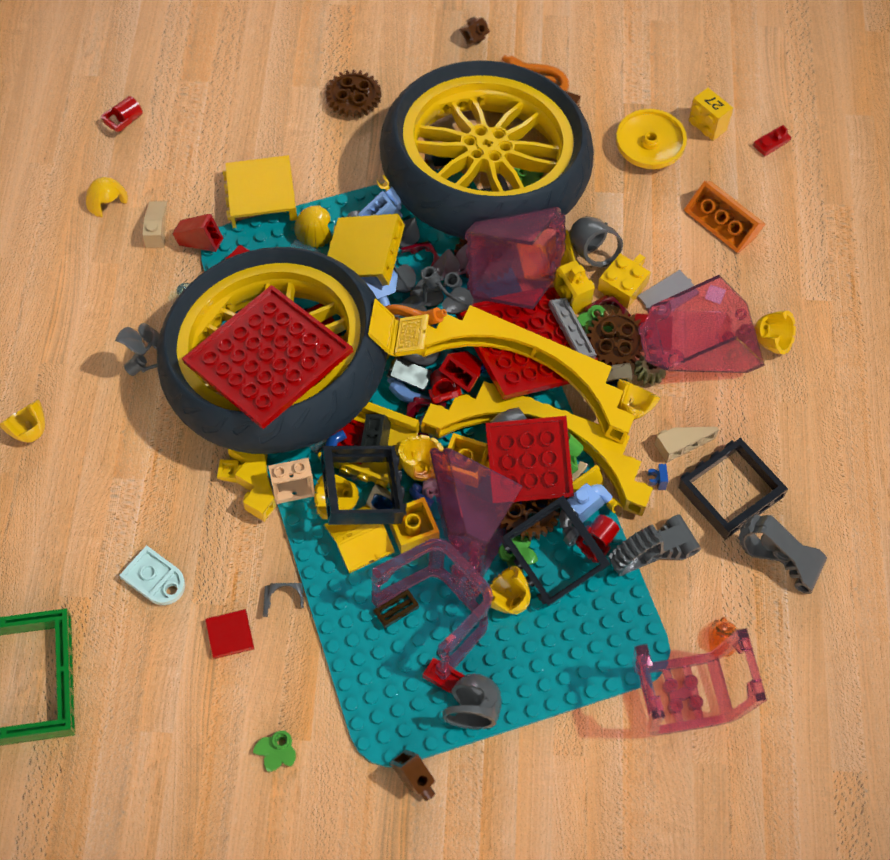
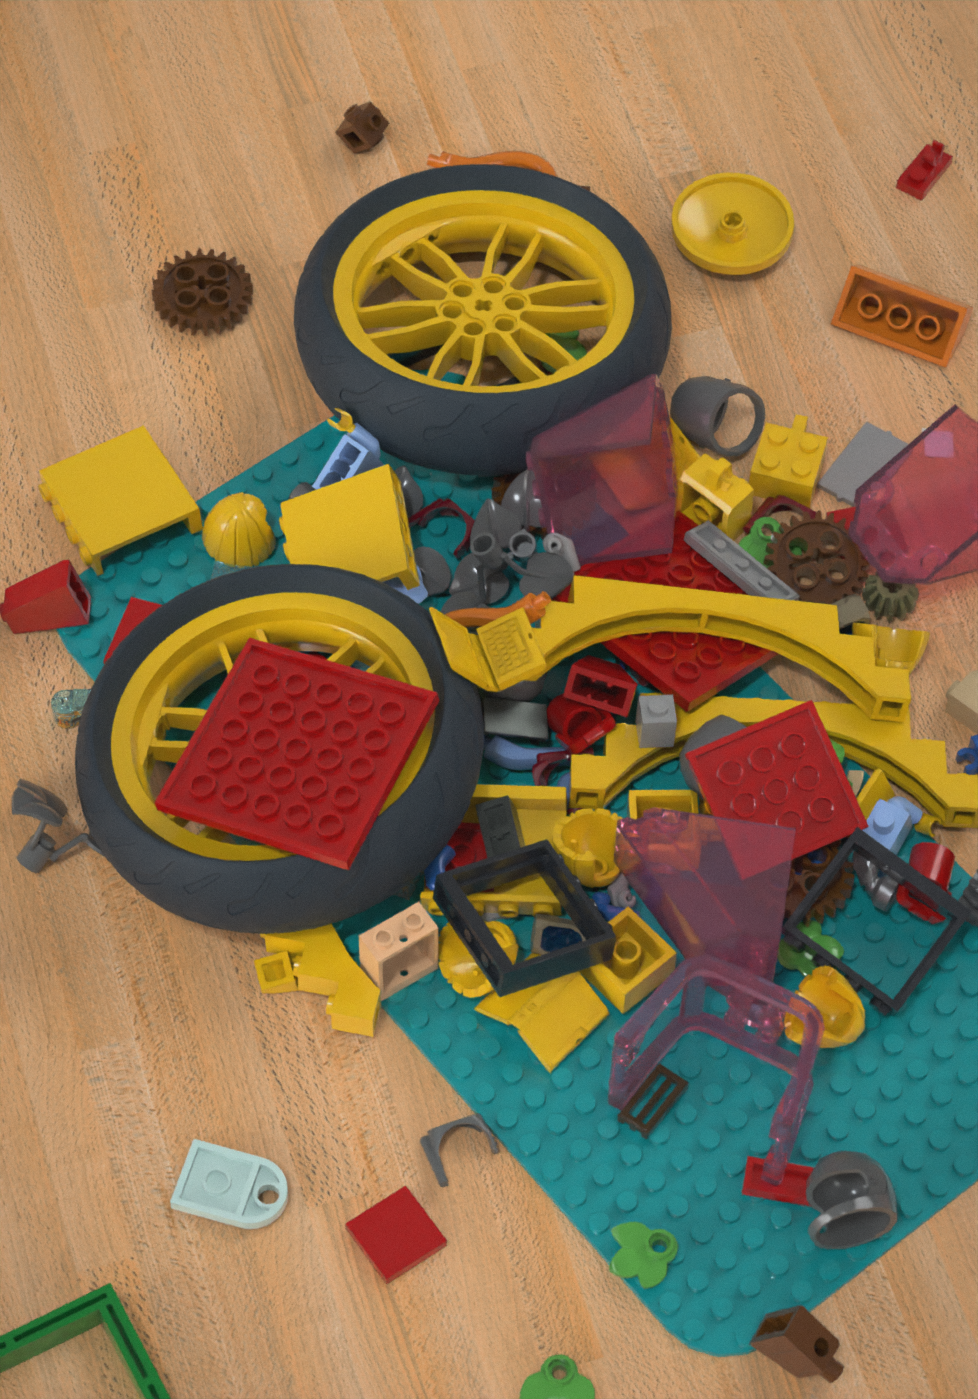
camera: 20 degrees left, 5 degrees down
(350, 691) = (637, 1255): none -> bright green plate
(475, 288) = (563, 547): none -> light grey arm
(482, 399) = (656, 721): none -> light grey brick
(710, 114) = (811, 155): yellow brick -> none

